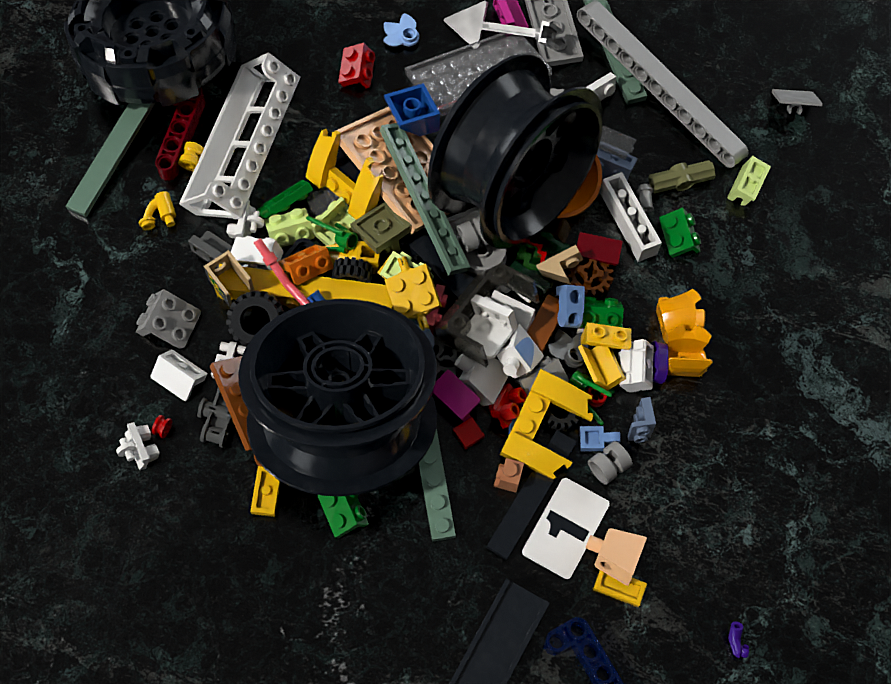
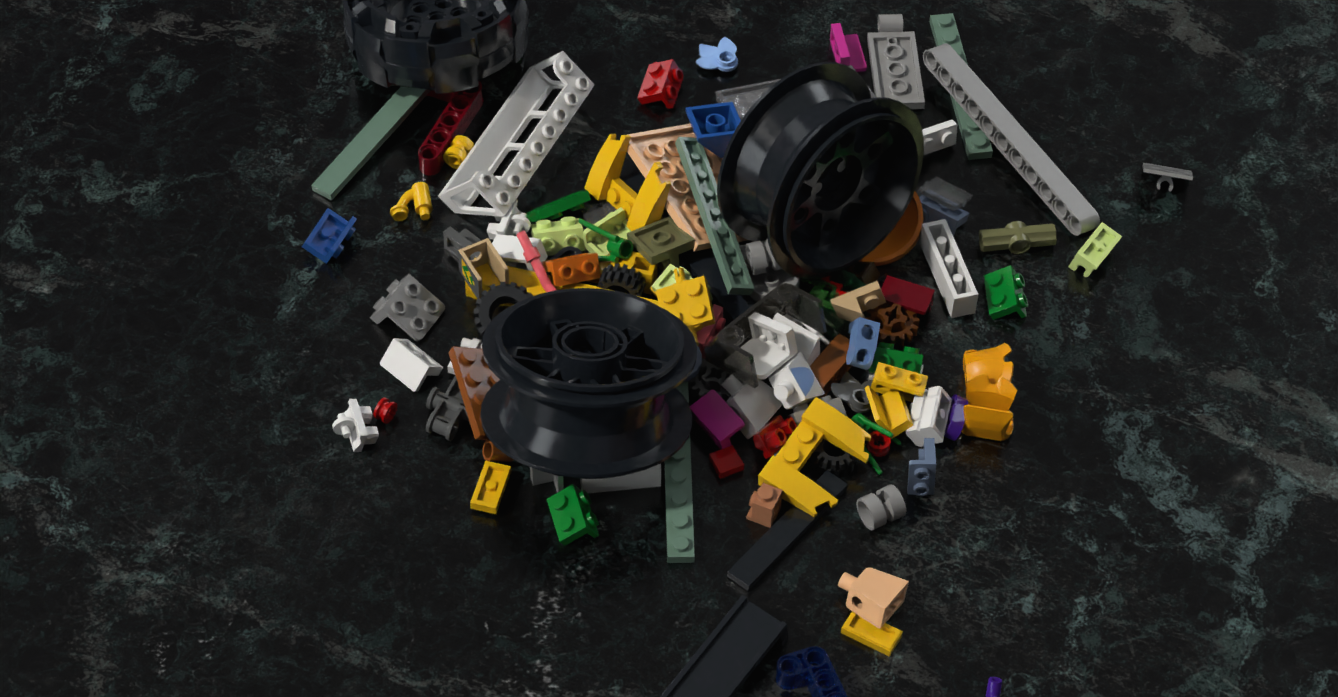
camera: 10 degrees right, 15 degrees down
(87, 255) = (328, 234): none -> blue bracket
(471, 24) = (802, 52): piece -> none
(565, 528) = (813, 573): white sticker -> none
(593, 438) = (869, 482): medium blue plate -> none
(645, 197) = (971, 253): light grey pin -> none

